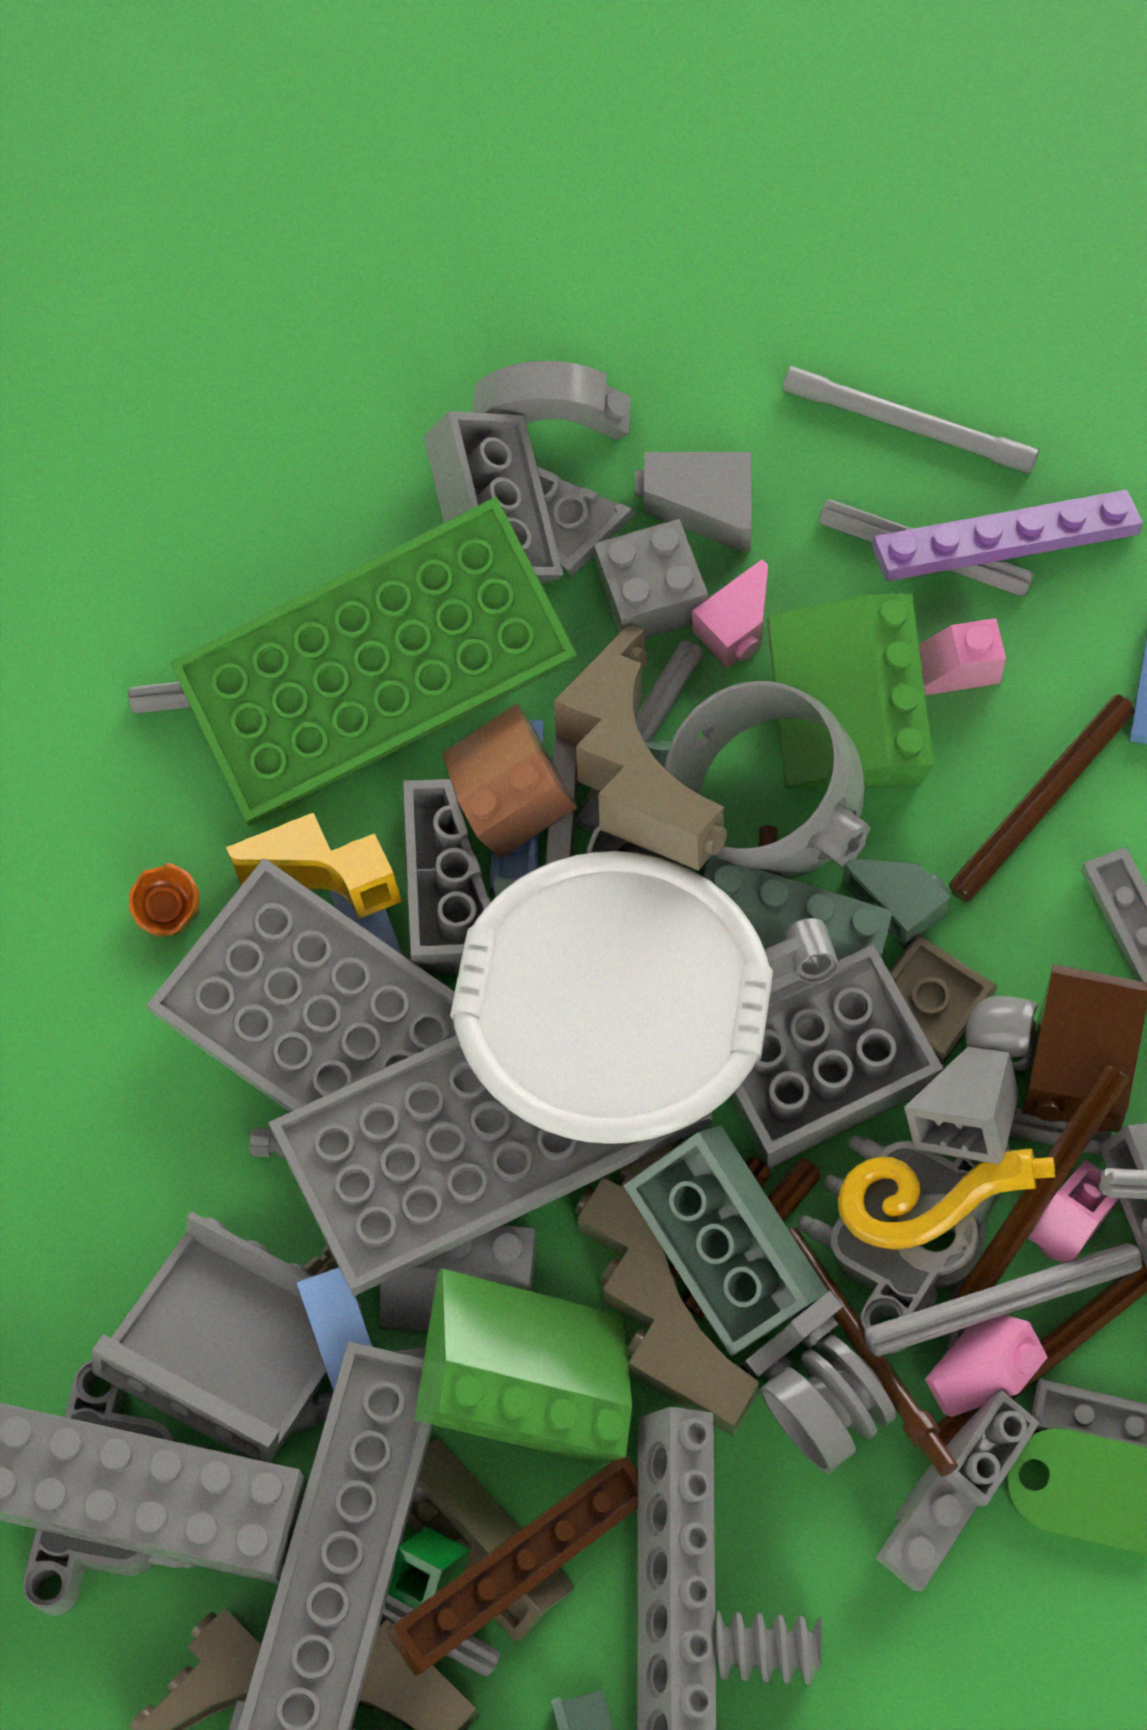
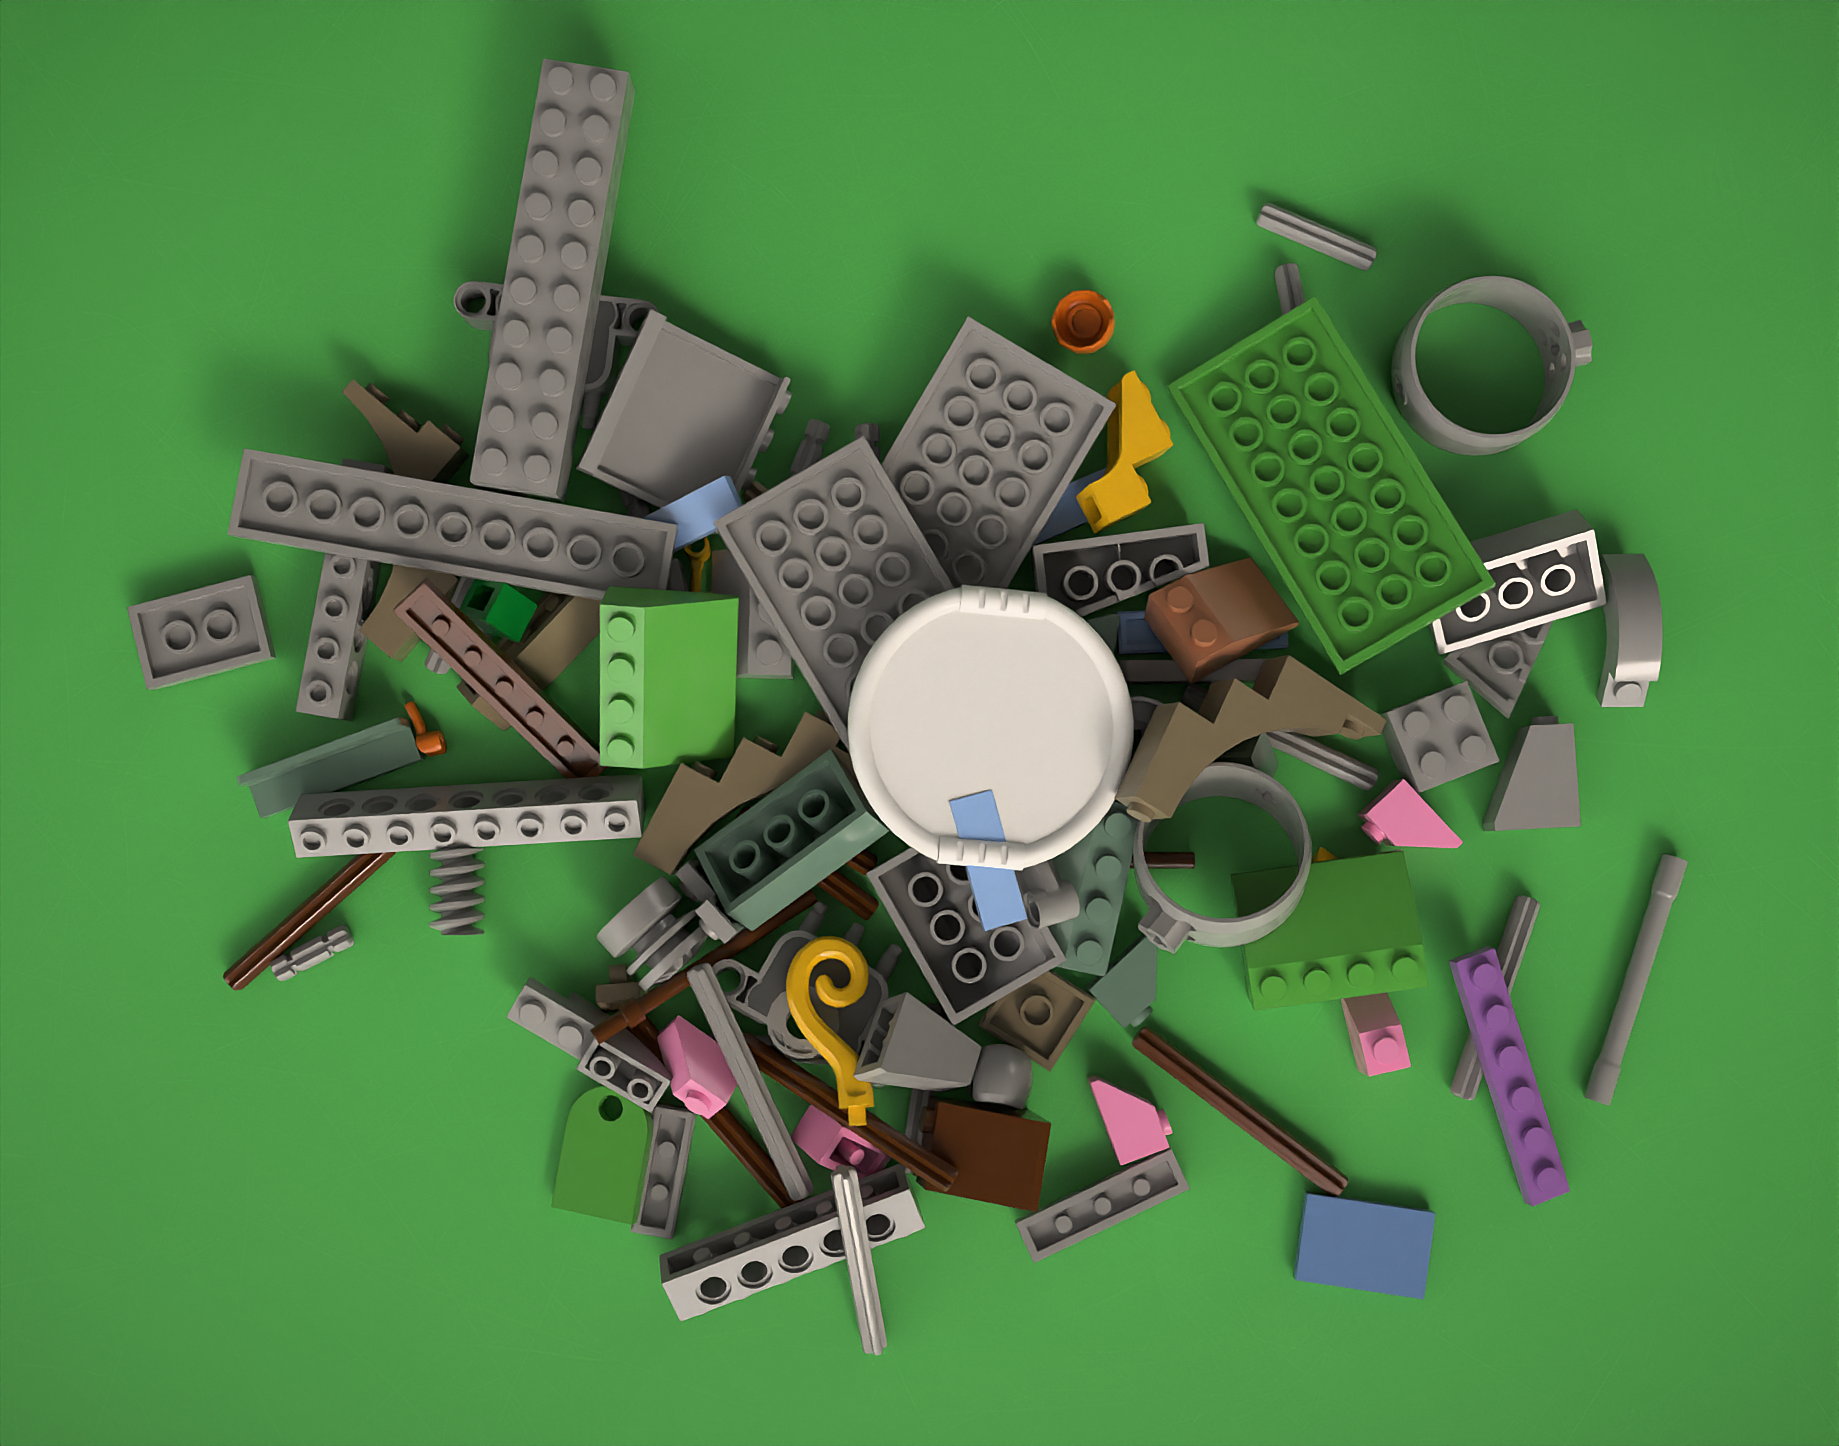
camera: 80 degrees right, 20 degrees up
(102, 669) = (1316, 236): none -> light grey axle
(213, 465) = (1560, 344): none -> light grey cylinder
(279, 1210) = (810, 448): none -> light grey axle
(389, 1343) = (697, 561): none -> yellow hand
(583, 1680) = (430, 743): none -> orange hand
(791, 1003) = (993, 888): none -> light blue tile
(895, 1457) = (618, 991): none -> dark tan tile
(1053, 906) = (1130, 1121): none -> bright pink slope

